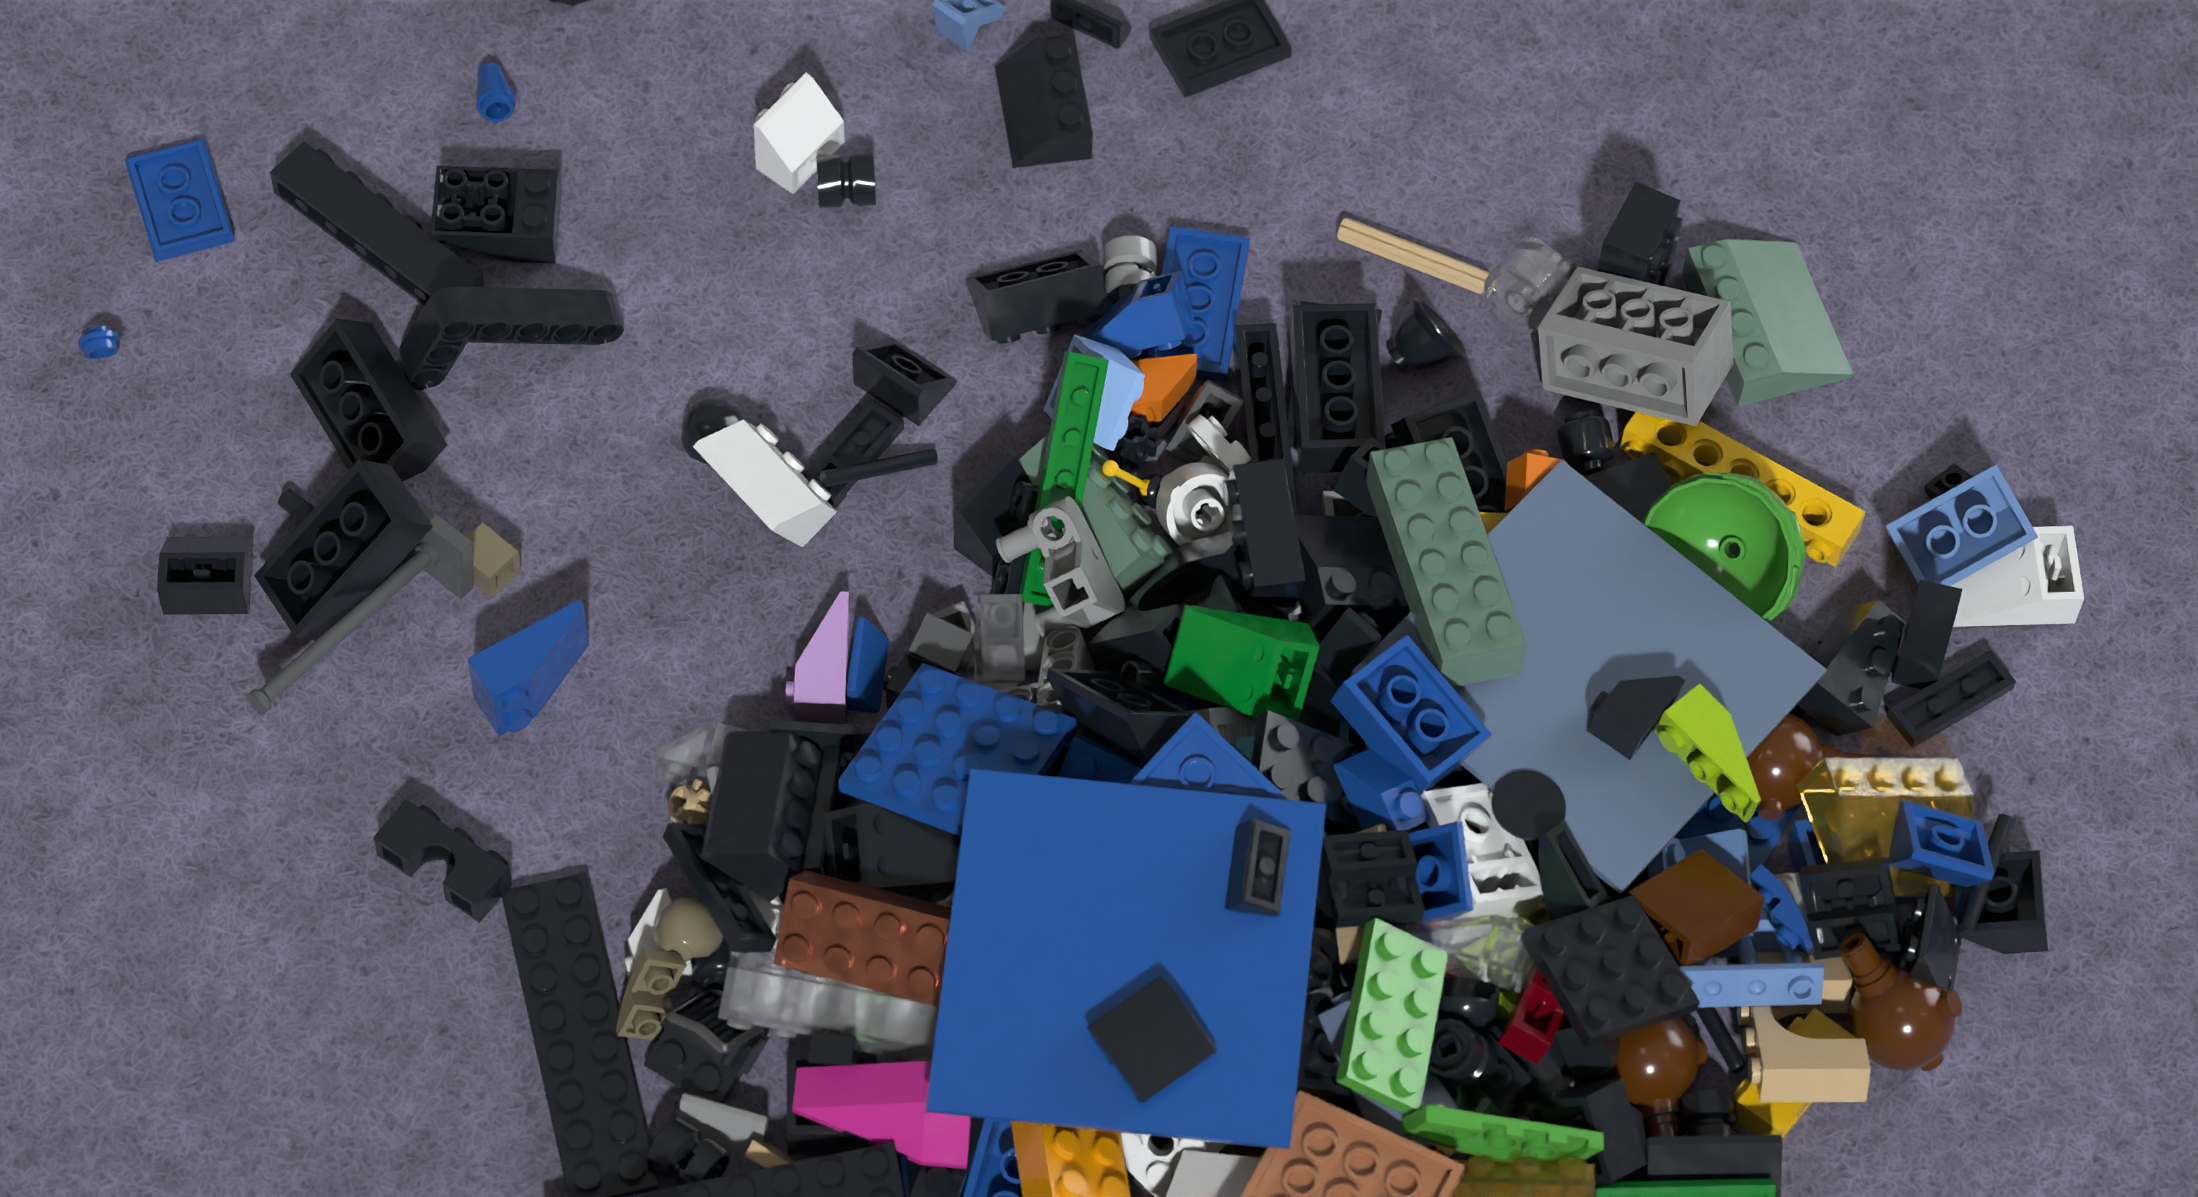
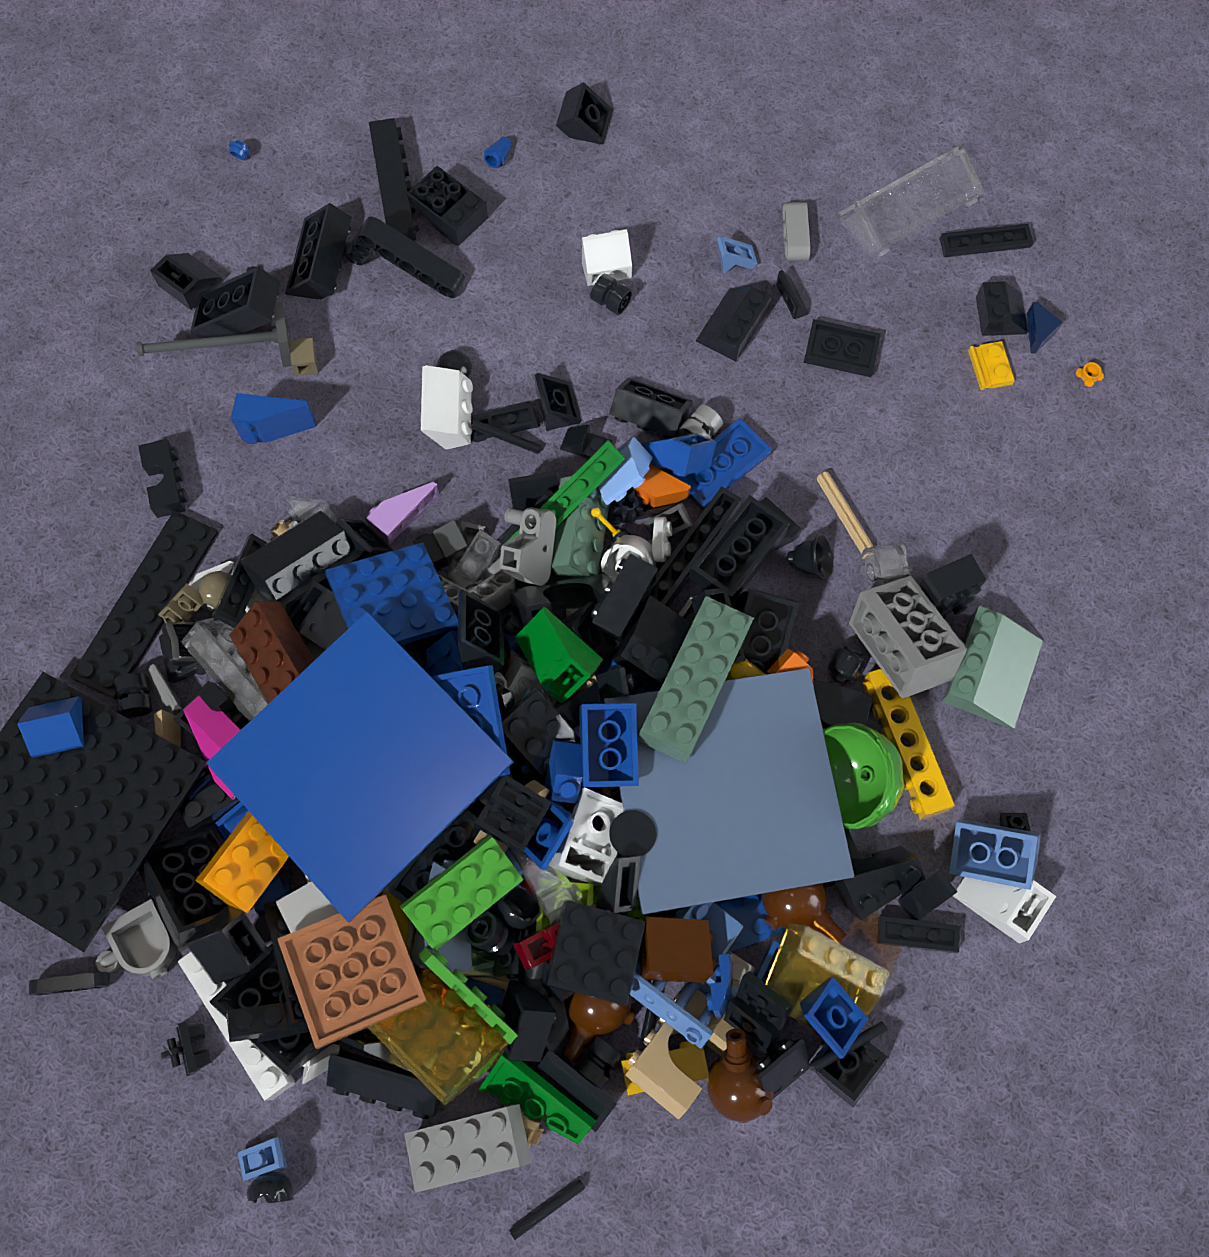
camera: 40 degrees right, 10 degrees up
(179, 200) = (329, 112): blue tile -> none
(867, 668) = (419, 523): blue slope -> none
(989, 405) = (581, 442): none -> black slope
(1151, 1039) = (327, 814): black slope -> none
(1257, 868) = (450, 769): black slope -> none
(1632, 711) = (726, 826): black slope -> none
(1708, 743) = (752, 869): lime slope -> none

